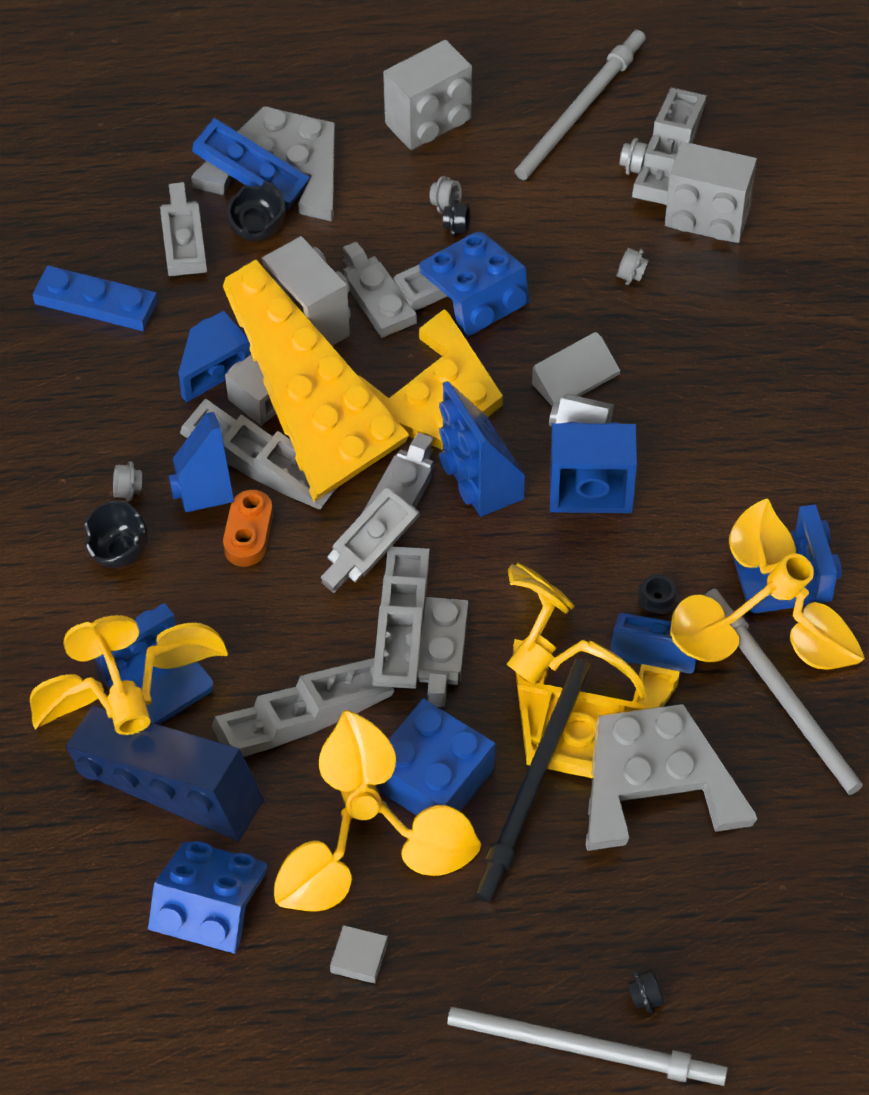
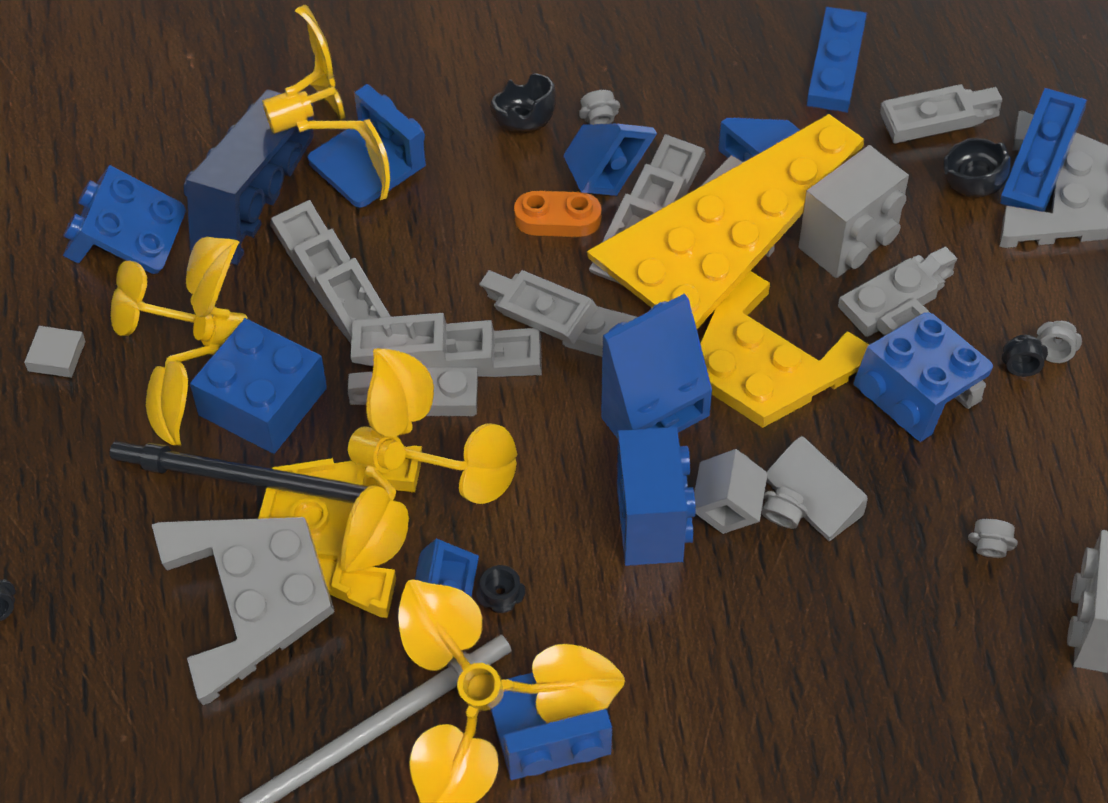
camera: 85 degrees right, 0 degrees up
(595, 388) = (784, 507): none -> light grey plate

